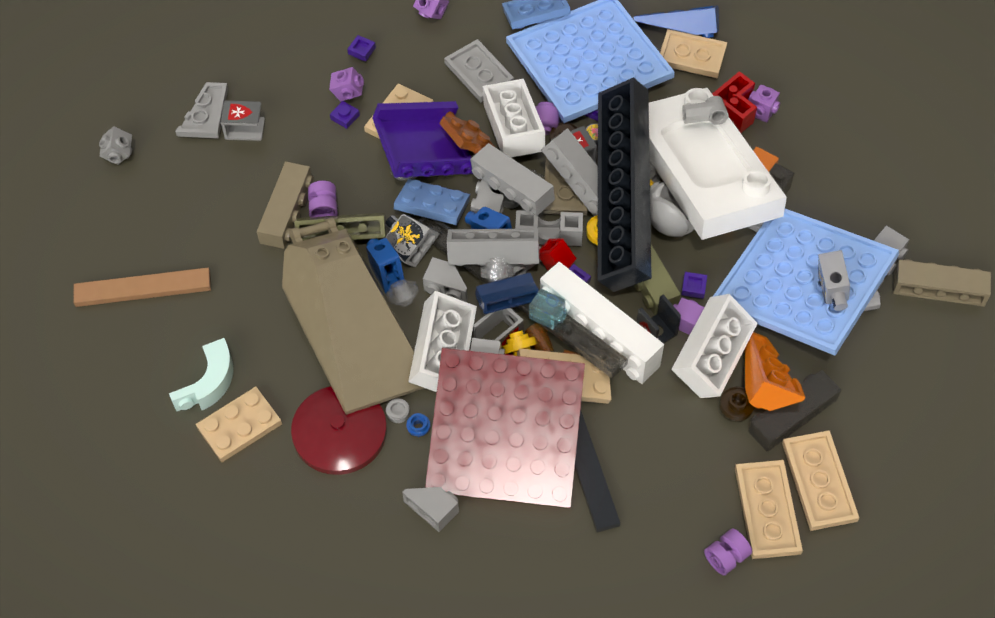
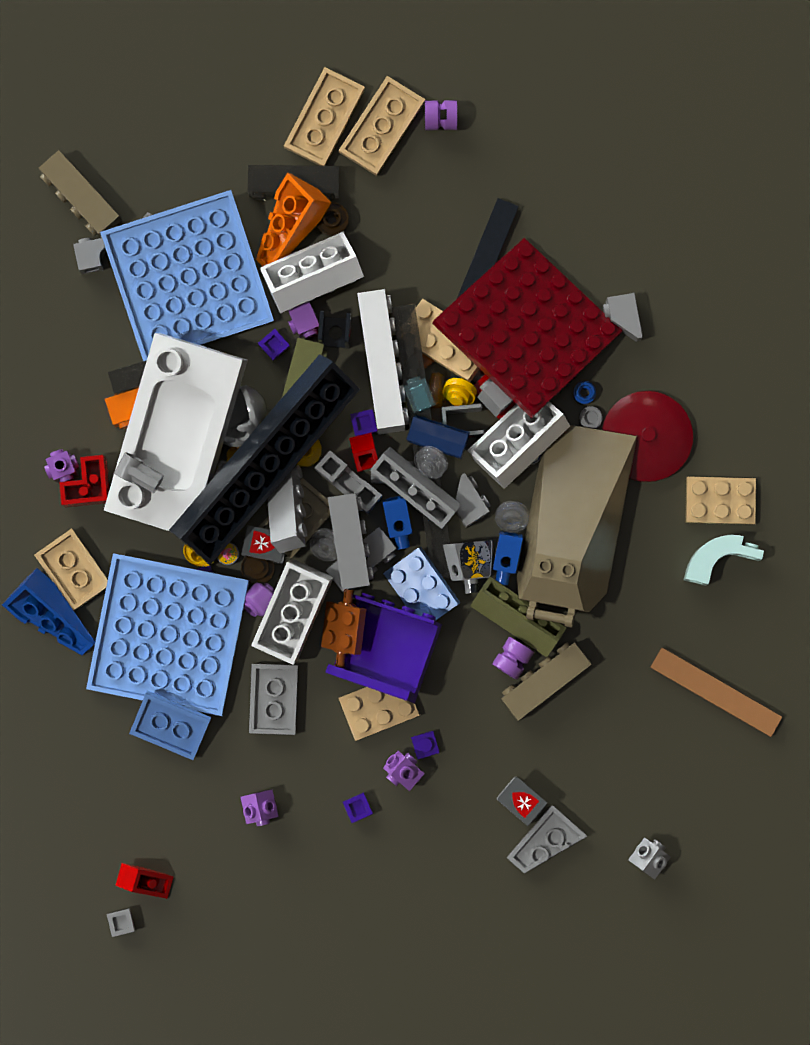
camera: 140 degrees left, 25 degrees up
(834, 279) = (177, 246): light grey torso -> none

